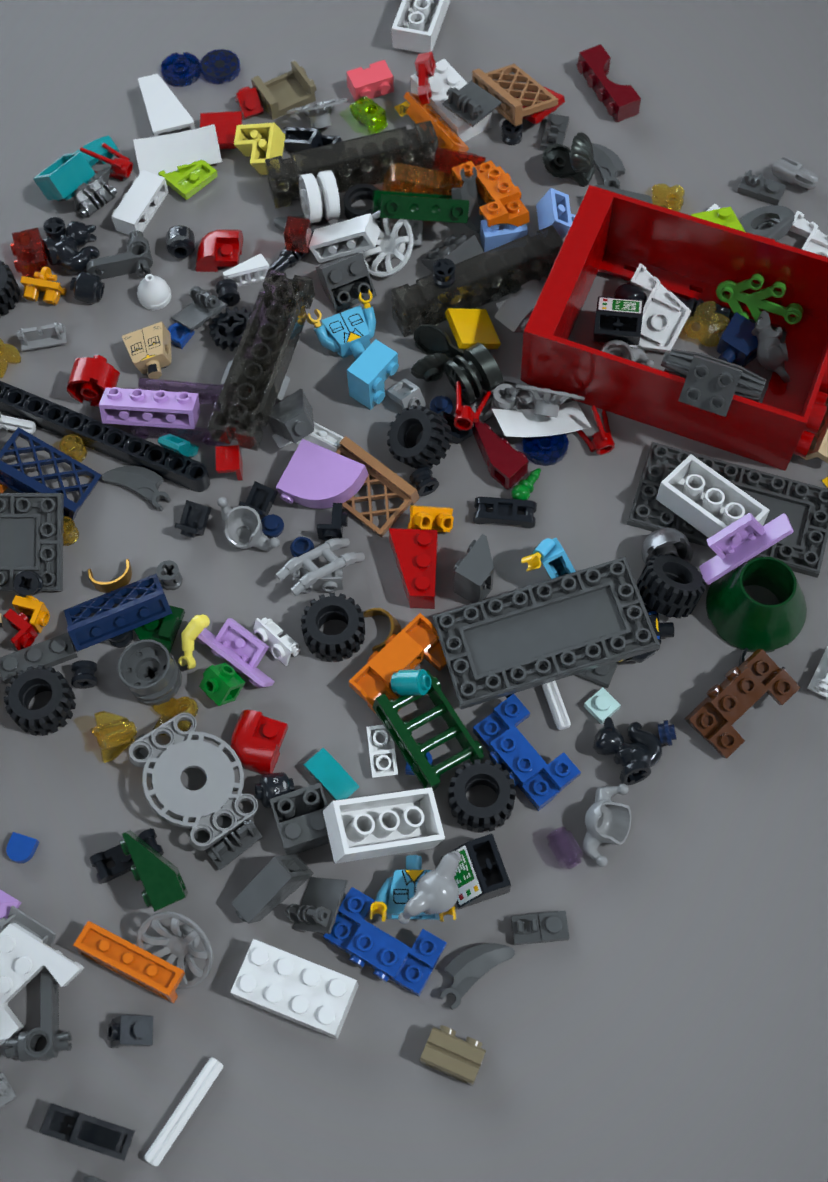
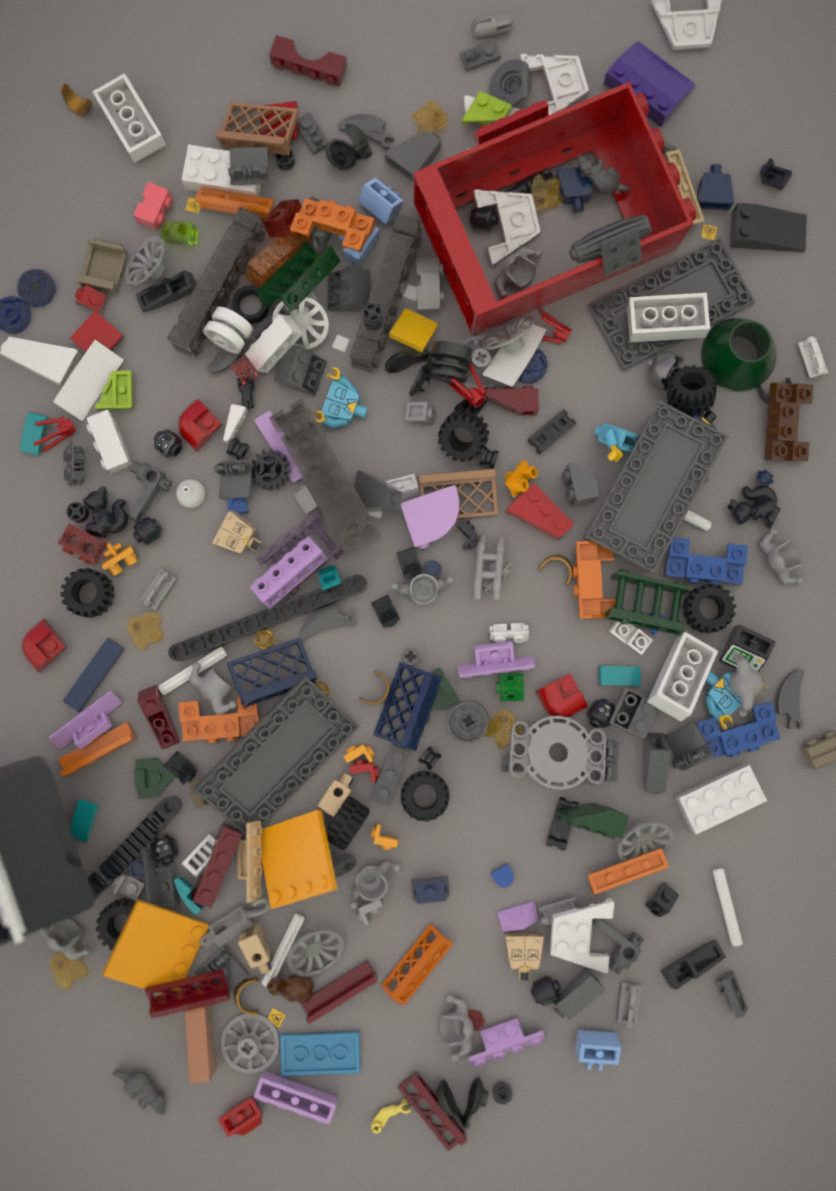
camera: 45 degrees left, 20 degrees up
(33, 581) = (339, 739): black wheel -> none
(64, 176) = (42, 471): teal piece -> none
(90, 378) = (230, 588): red brick -> none
(113, 733) = (485, 773): clear yellow brick -> none
(188, 637) = (465, 674): light yellow arm -> none
(229, 460) = (366, 557): red panel -> none
(259, 142) = (142, 321): light yellow brick -> none
(301, 546) = (463, 566): dark blue plate -> none
(333, 609) = (546, 583): black tyre -> none
(369, 372) = (391, 419): medium azure brick -> none
(411, 682) = (616, 586): teal brick -> none
(425, 68) = (192, 168): red piece -> none
(441, 403) = (446, 399): dark blue plate -> none
(469, 192) = (318, 241): dark grey piece -> none
(525, 487) = (548, 410): green bar -> none
(540, 928) = (801, 645): dark grey plate -> none
(565, 848) = (775, 592): clear purple brick -> none
(601, 705) = (716, 494): light aqua plate -> none
(618, 320) = (497, 241): black slope -> none
(741, 543) = (716, 331): lavender bracket -> none
(756, 301) = (545, 158): bright green plant -> none

